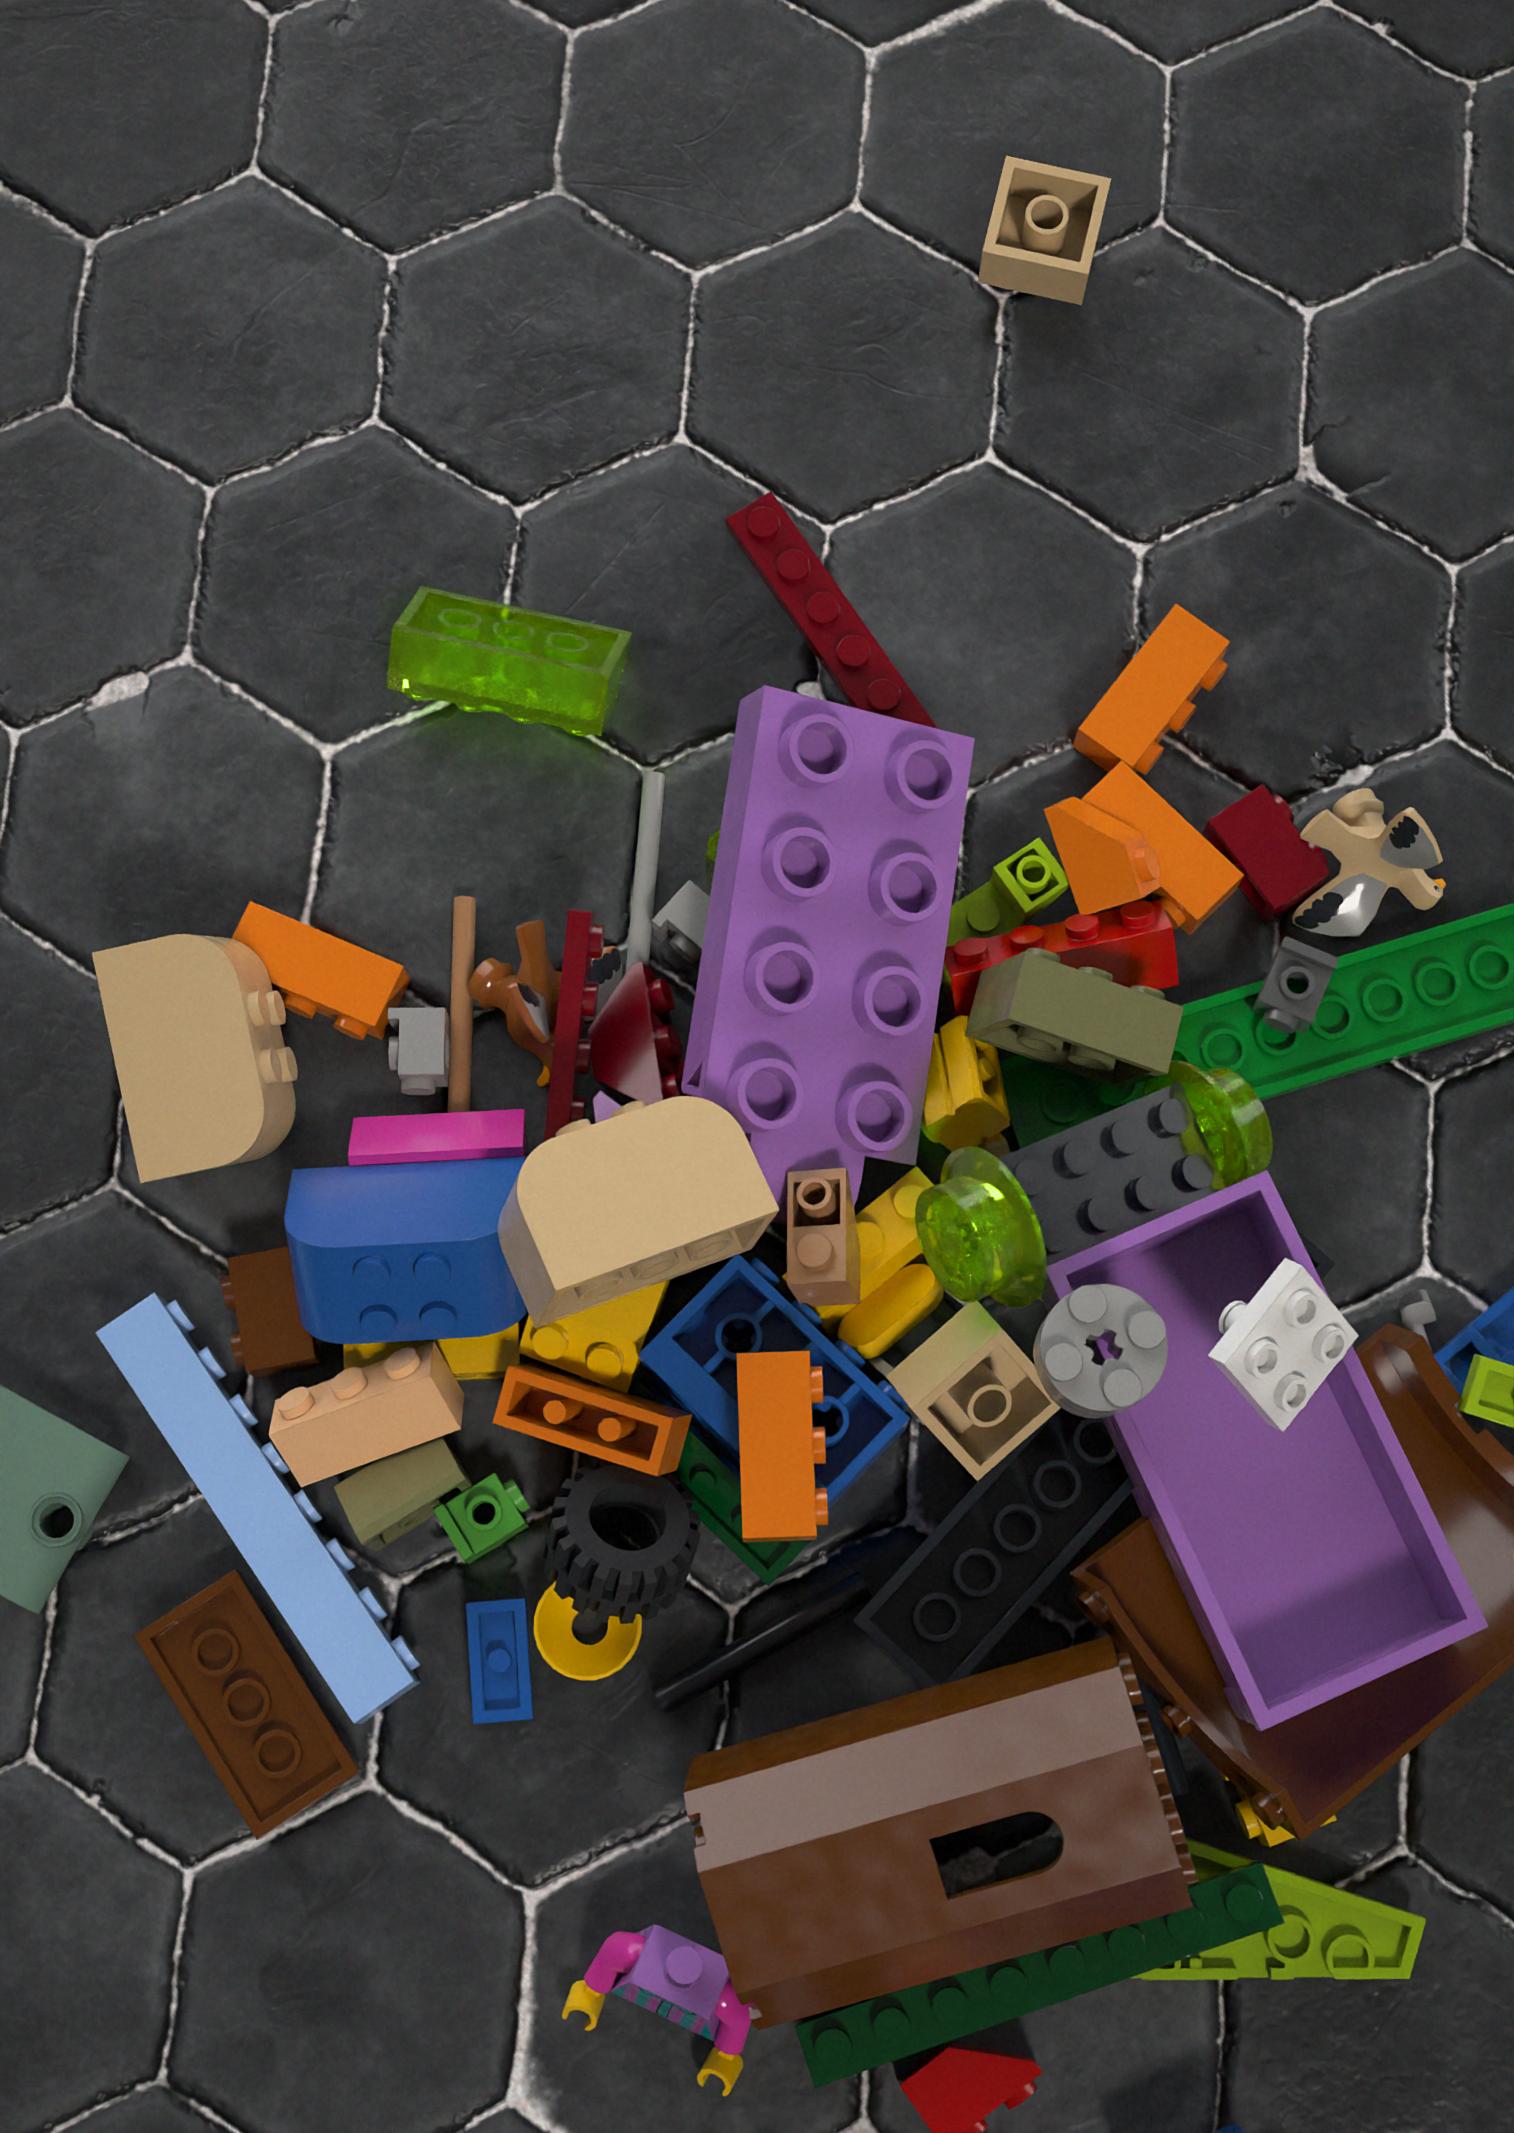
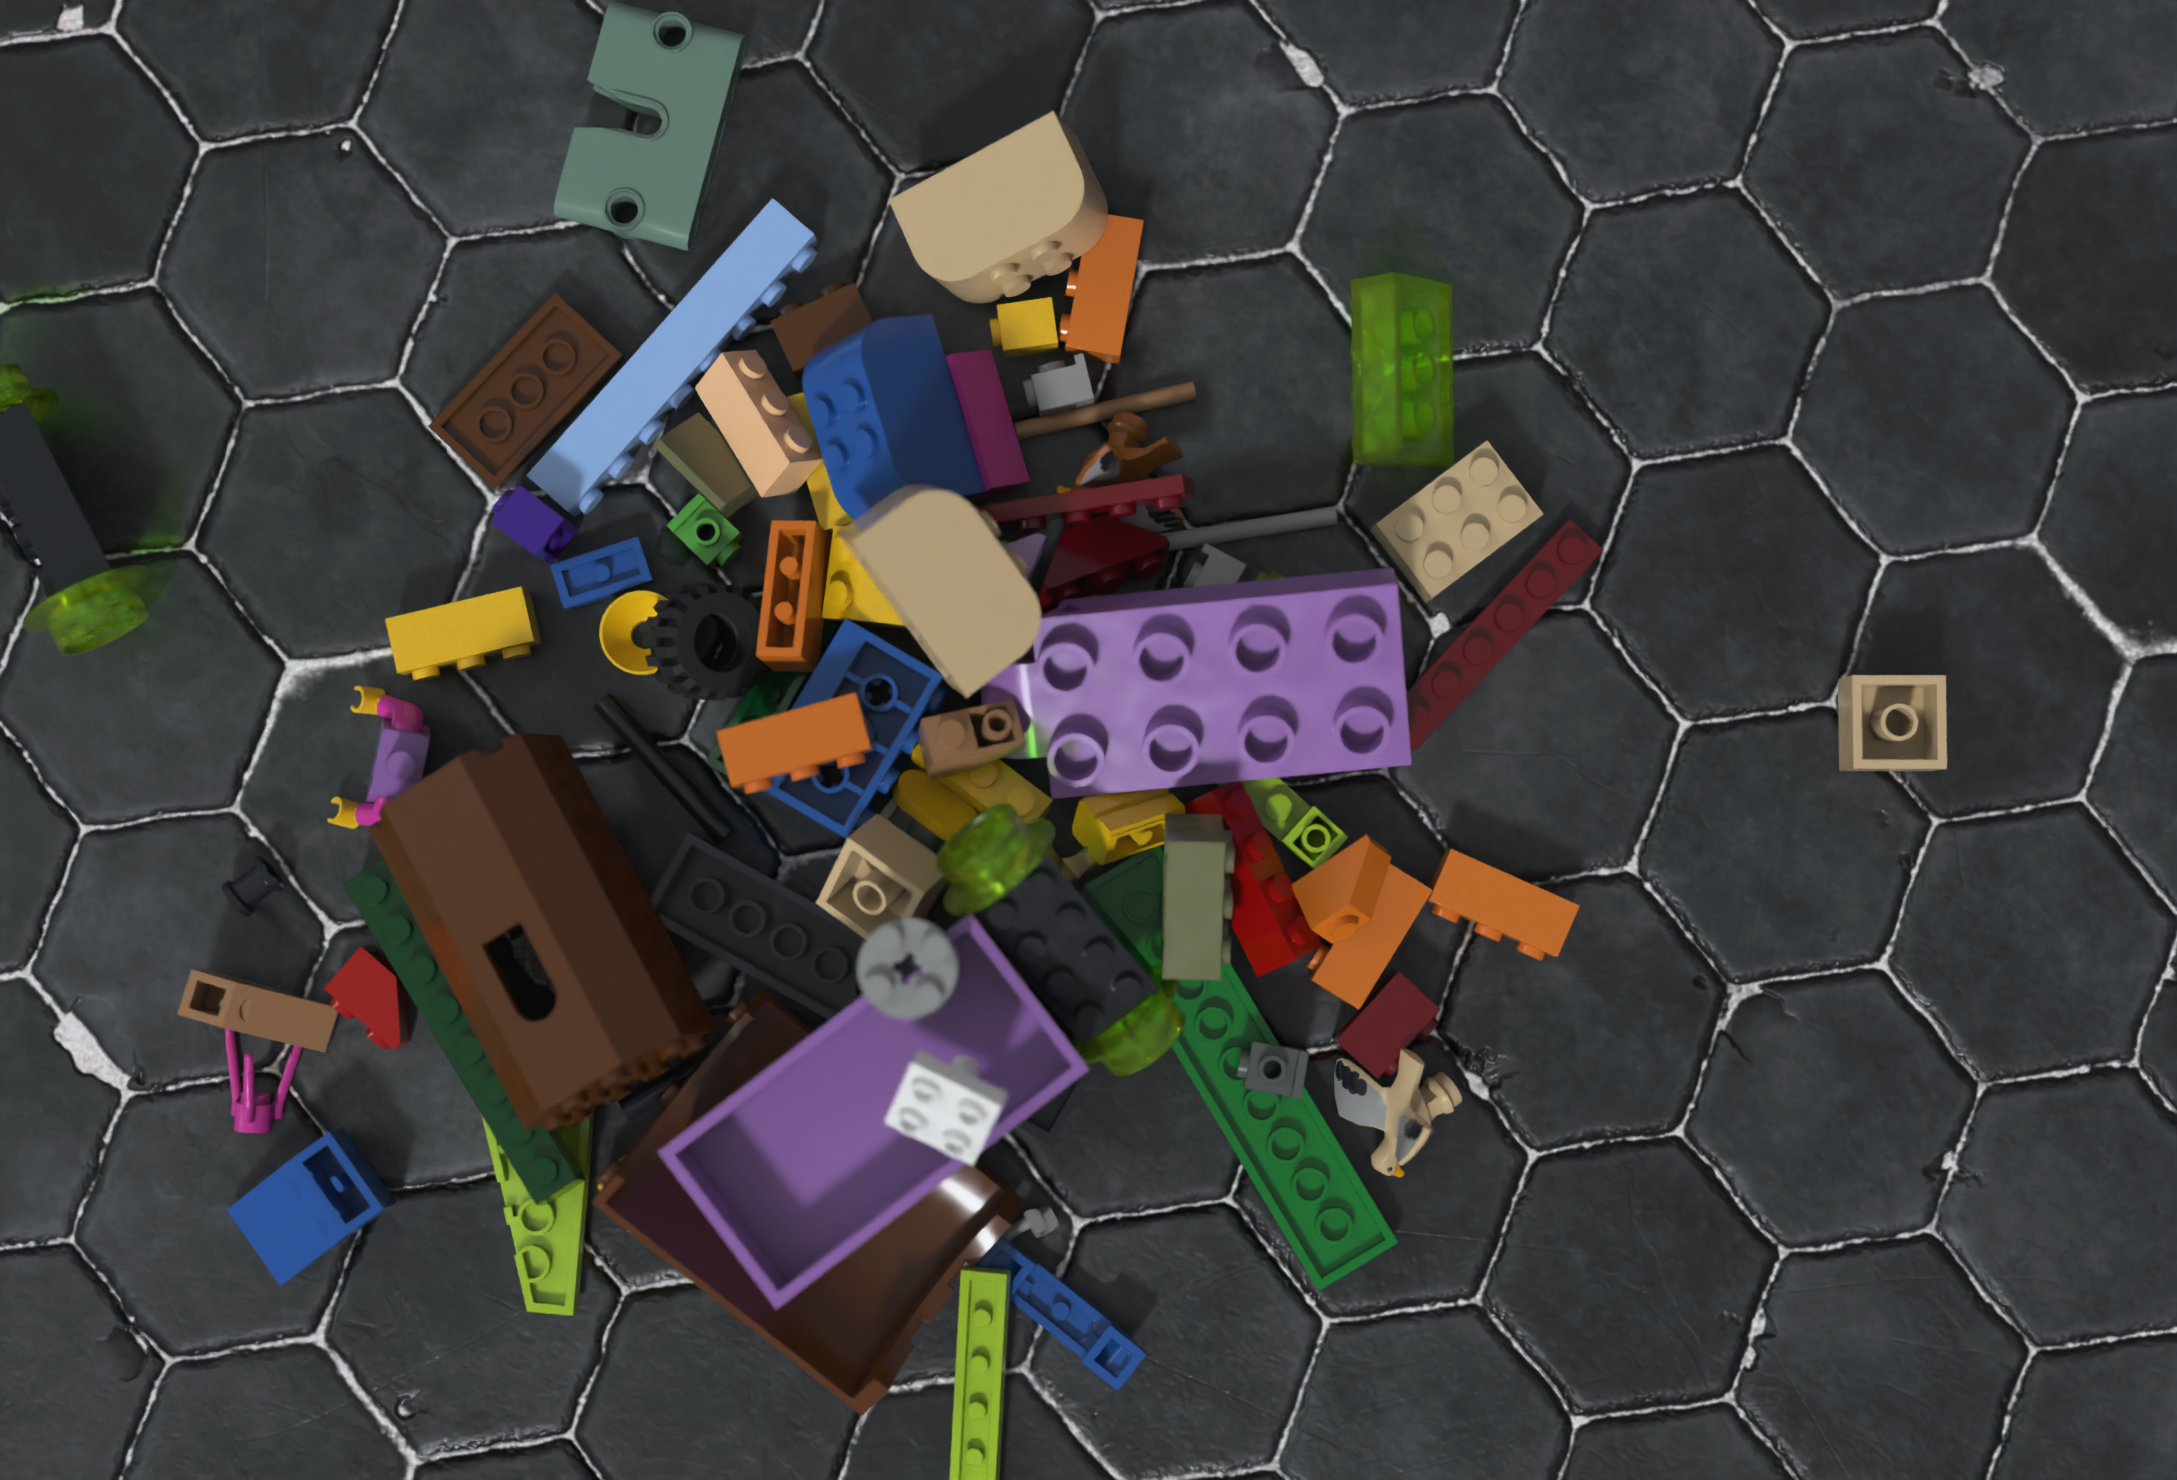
camera: 70 degrees right, 10 degrees up
(338, 1072) = (1025, 328): none -> yellow brick
(416, 1728) = (533, 524): none -> dark purple brick
(531, 1857) = (463, 633): none -> yellow brick
(696, 636) = (1456, 521): none -> tan brick

